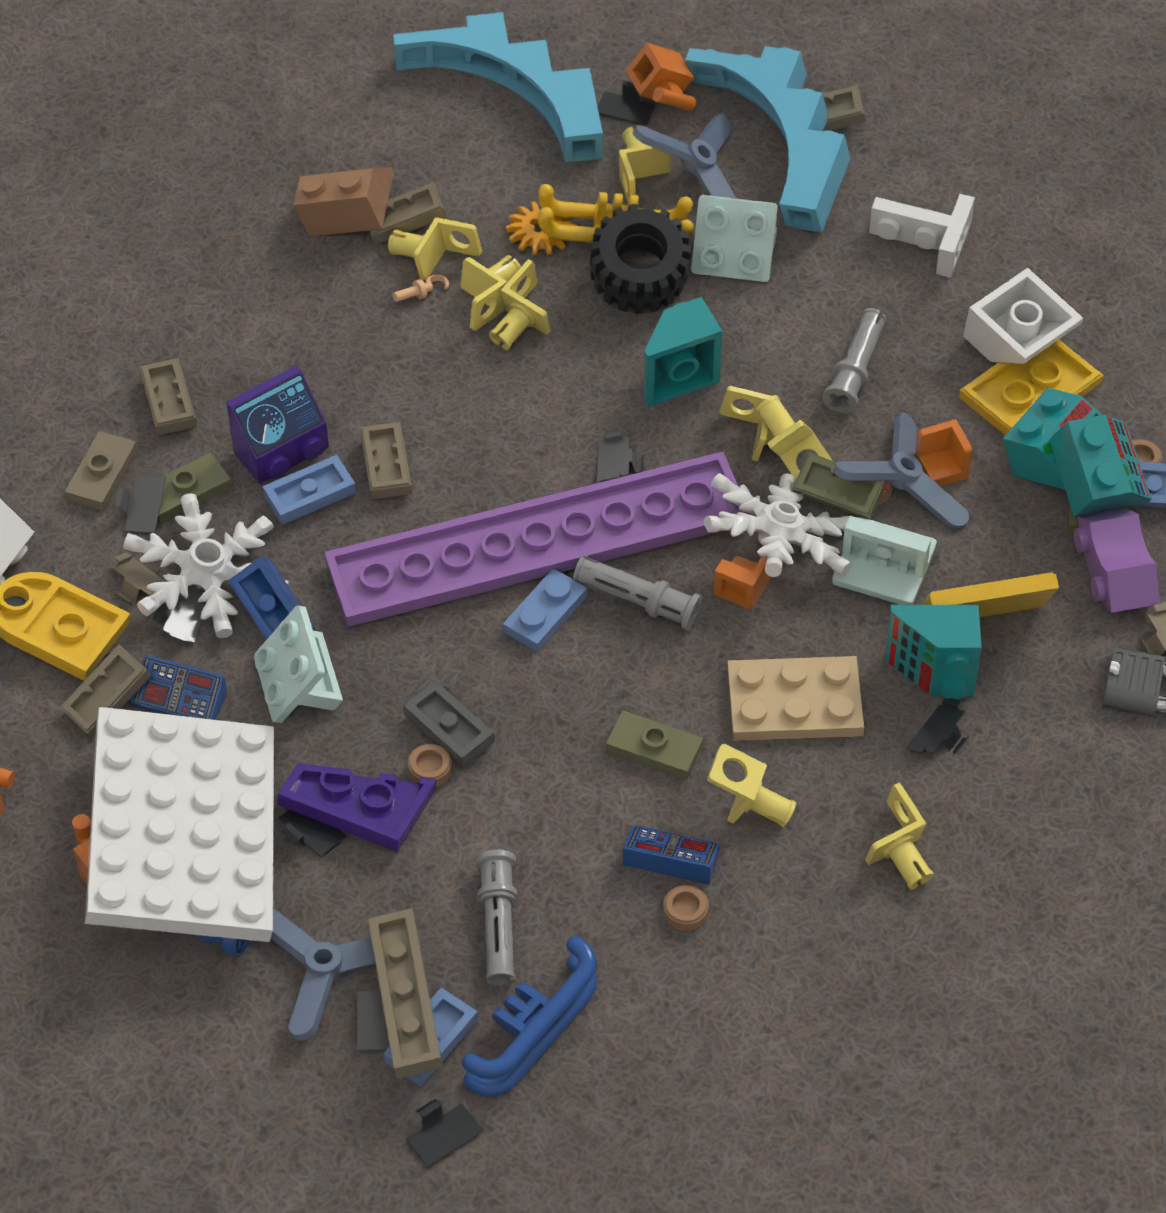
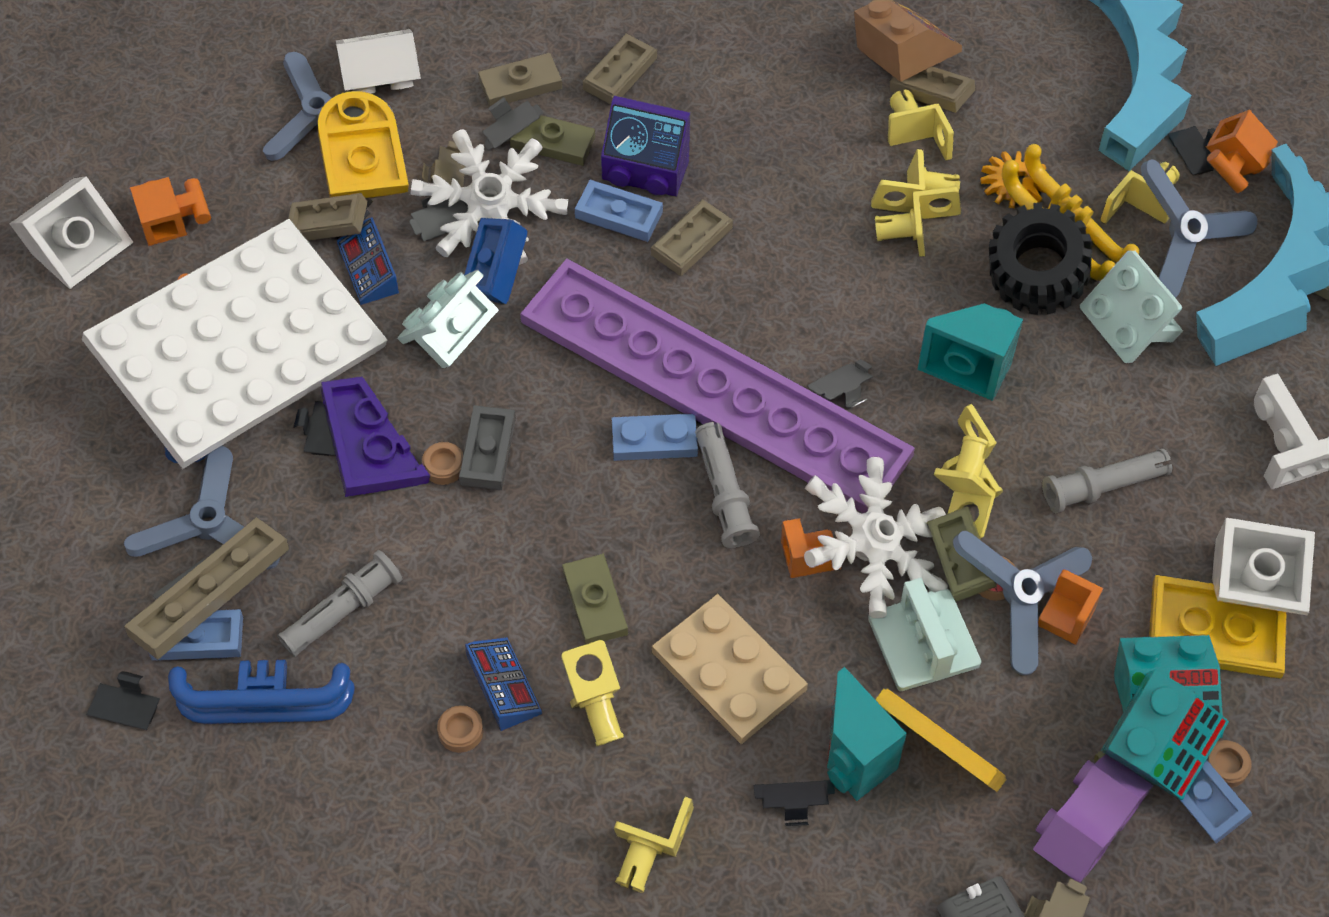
camera: 50 degrees right, 5 degrees up
(420, 288) = (876, 147): light nougat hand -> none

